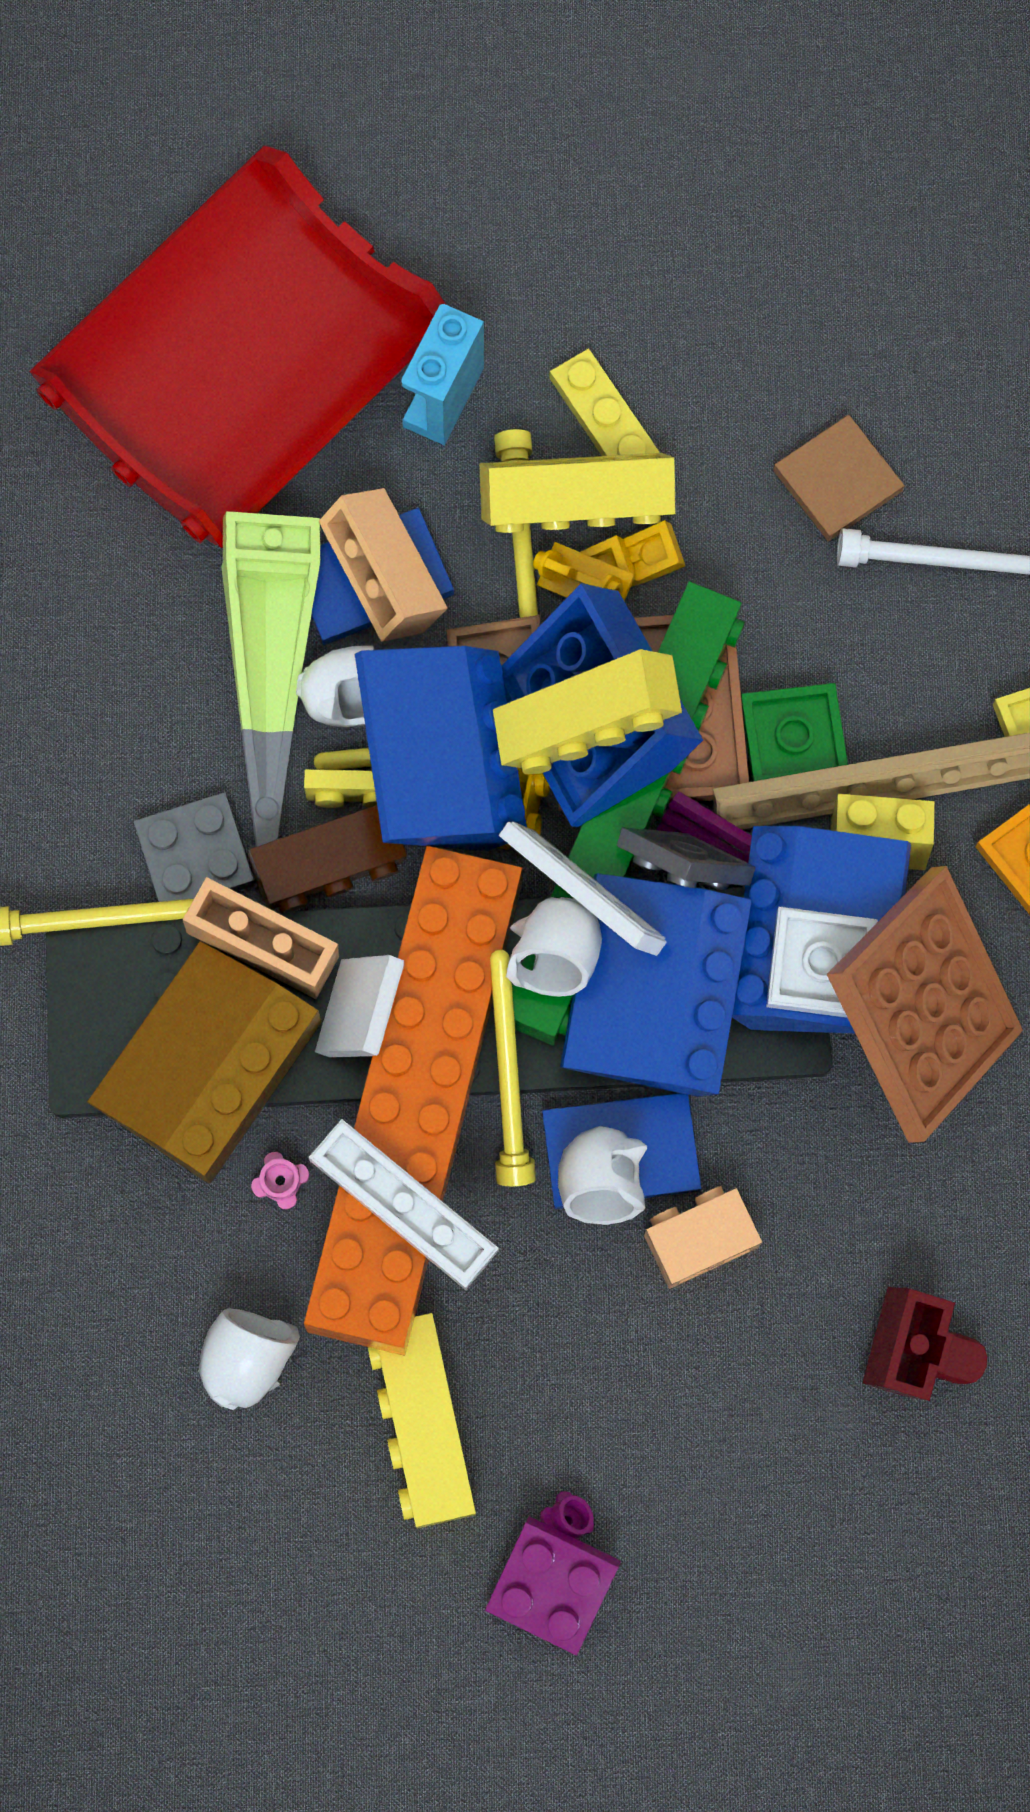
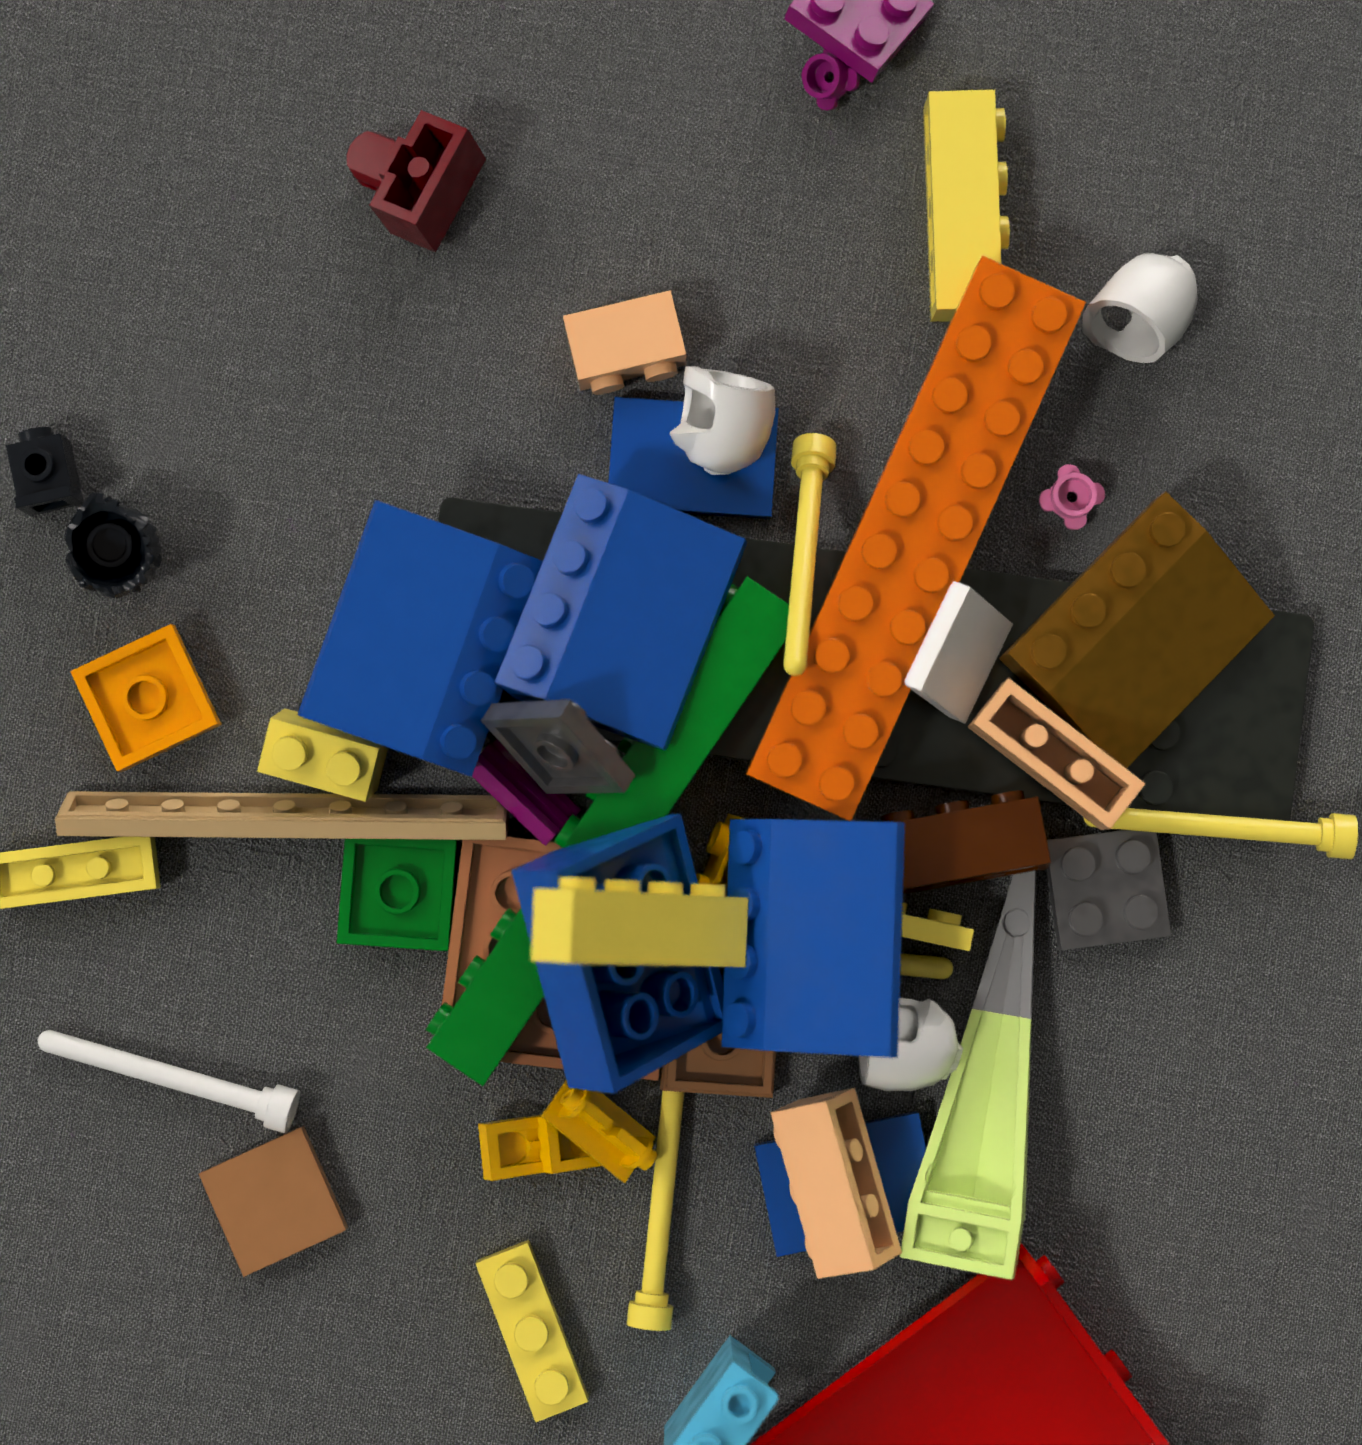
camera: 170 degrees left, 10 degrees up
(403, 1204) = (955, 405): white tile -> none
(565, 947) = (727, 664): white piece -> none
(577, 489) = (588, 1234): light yellow brick -> none
(583, 888) = (685, 726): white tile -> none
(804, 952) = (431, 589): white tile -> none
(925, 1003) = (324, 528): nougat plate -> none

